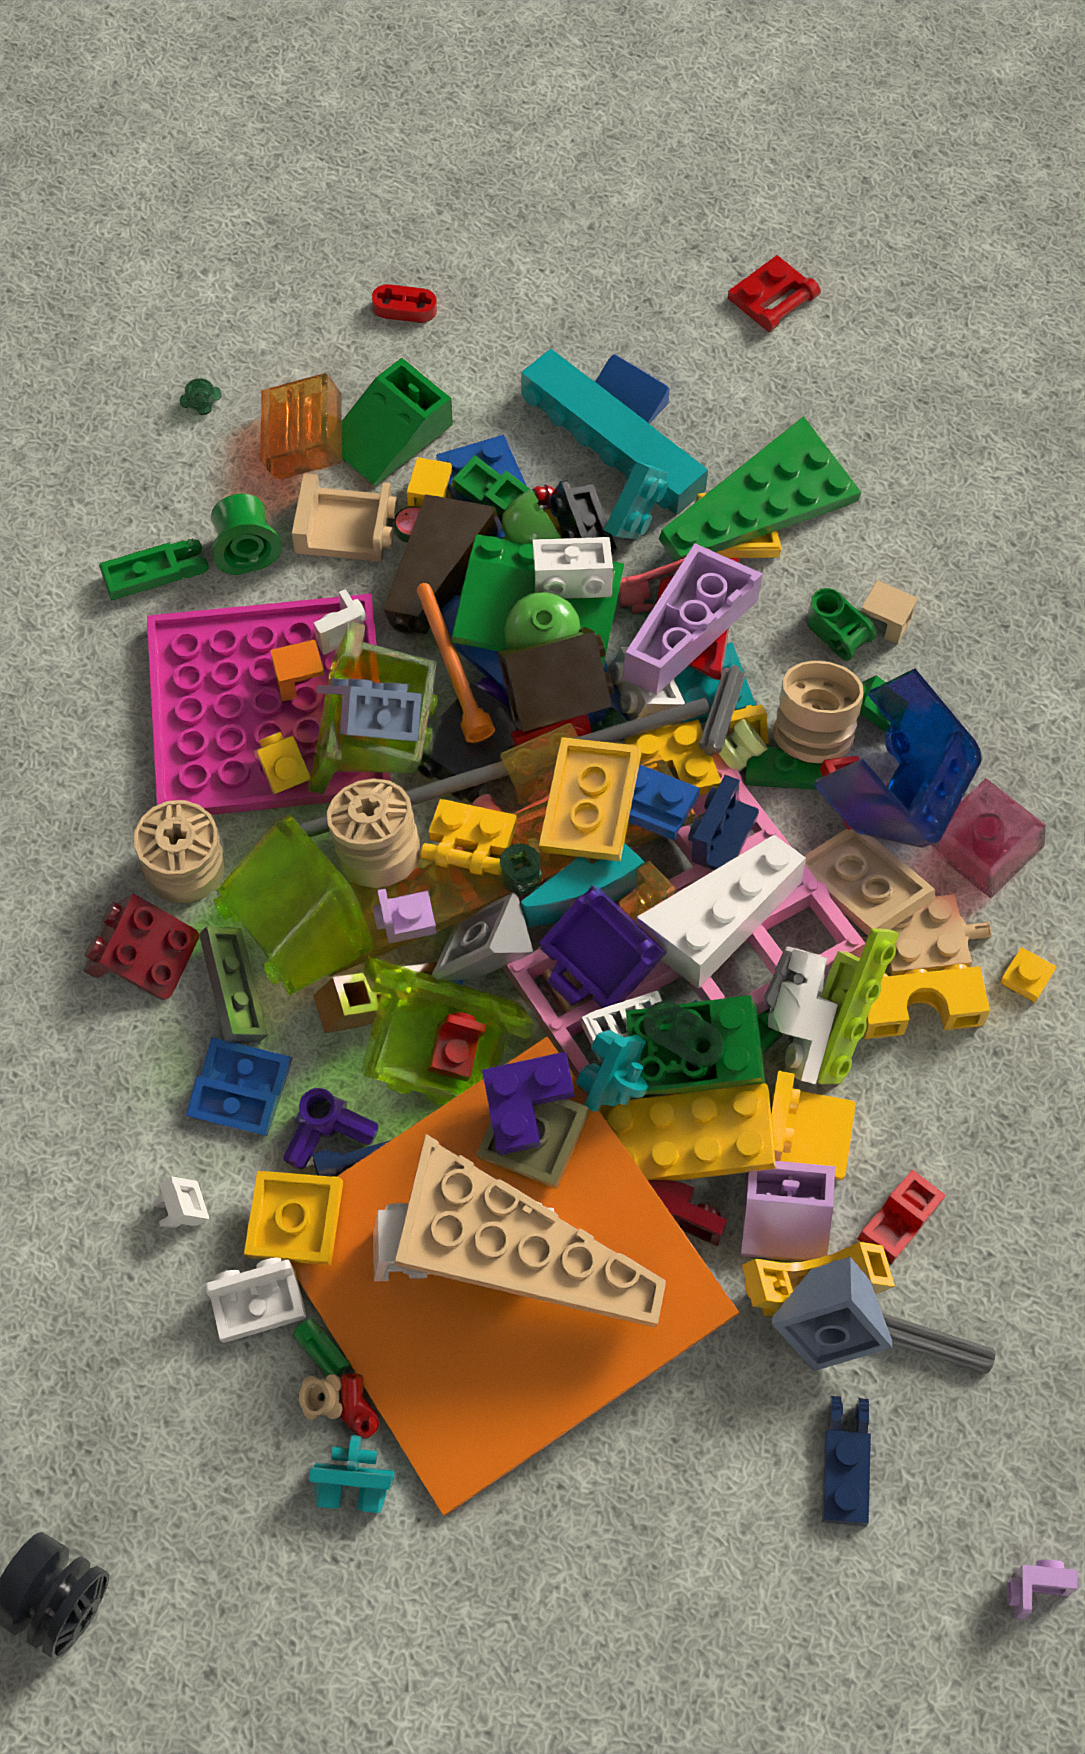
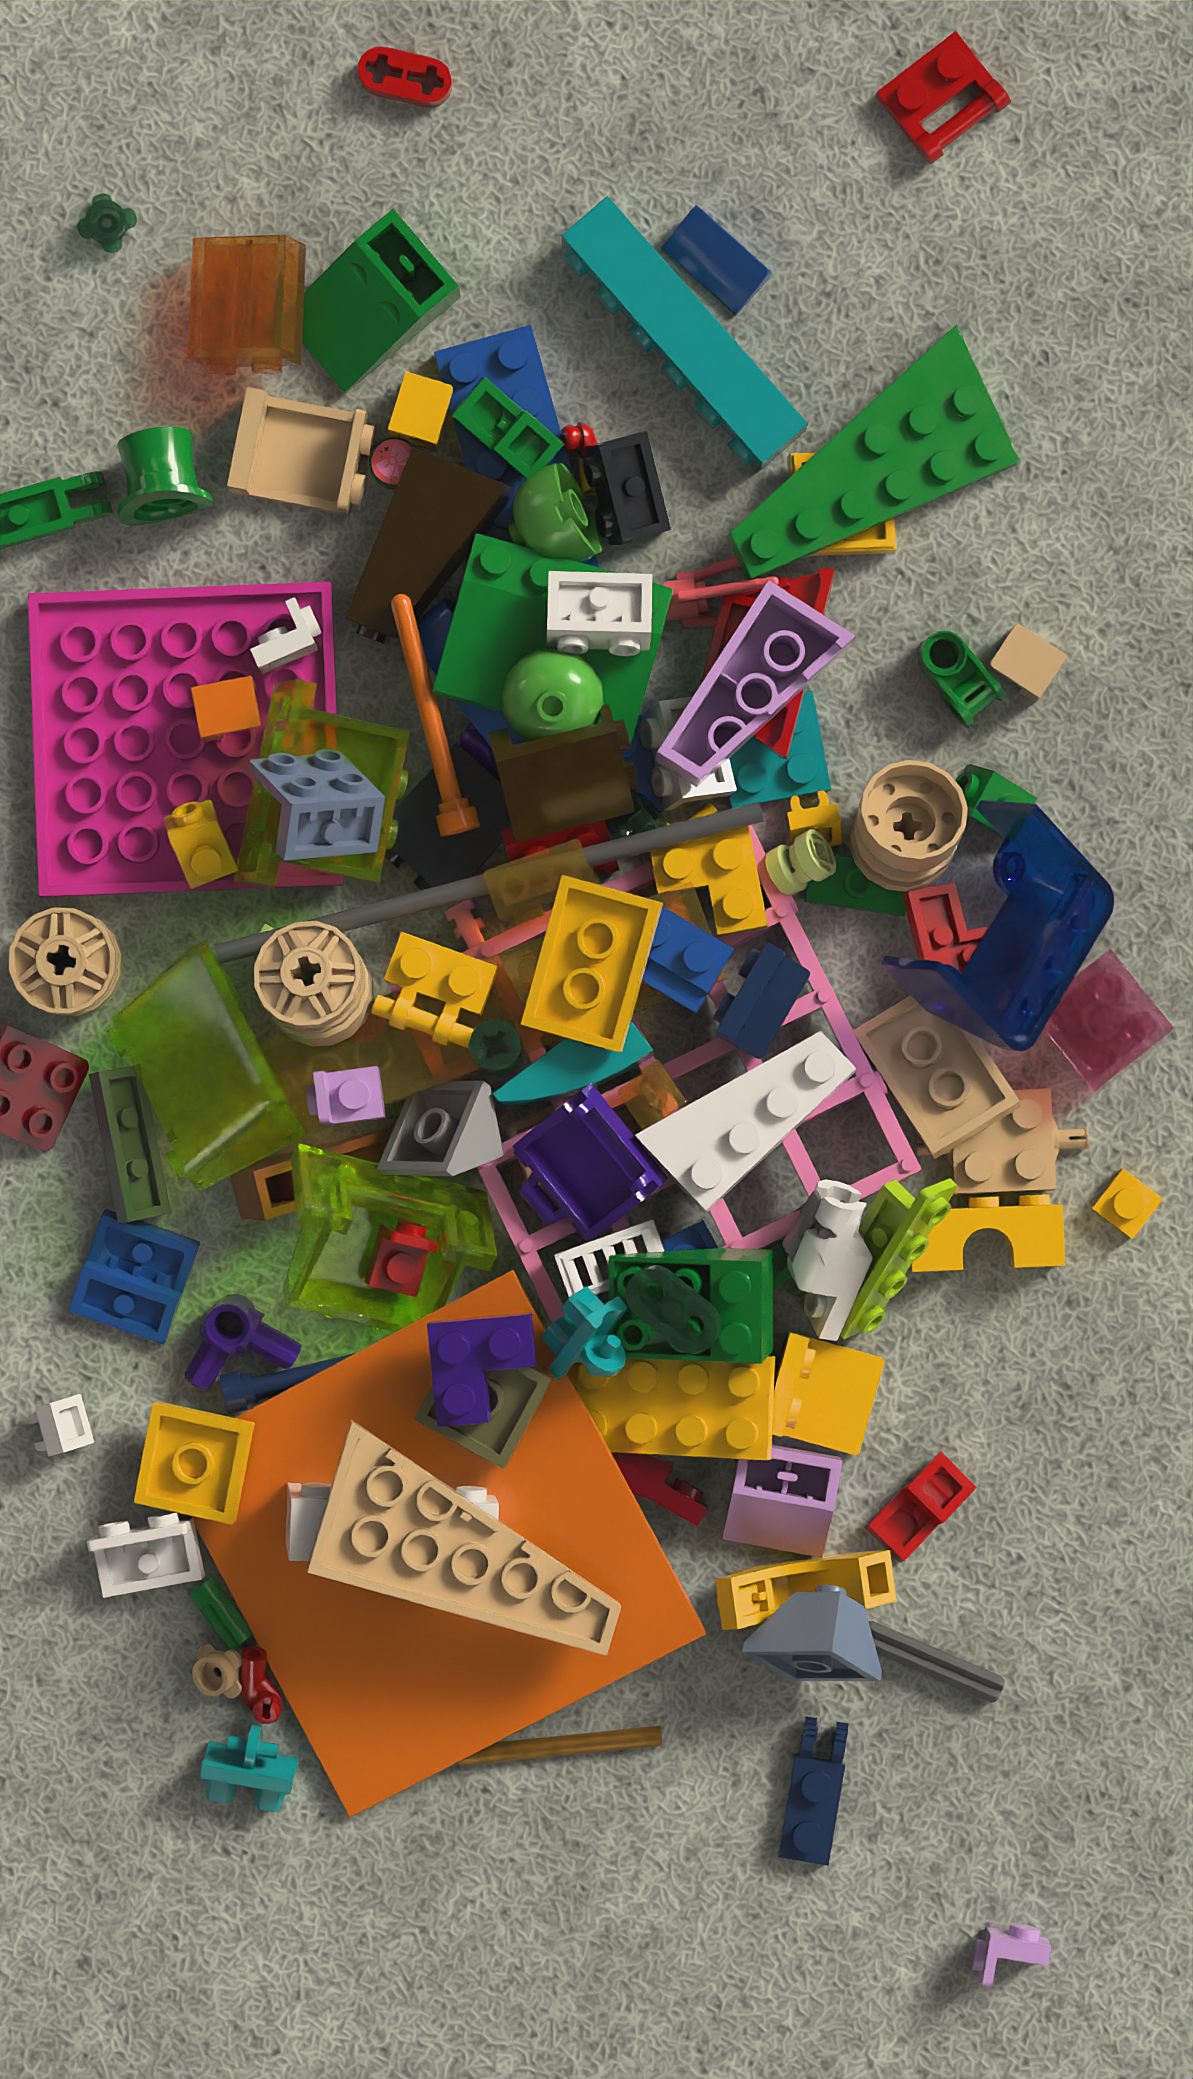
camera: 10 degrees right, 25 degrees up
(623, 1439) = (567, 1745): none -> pearl gold bar
(631, 513) = (703, 482): teal plate -> none
(722, 710) = (781, 816): dark grey axle -> none

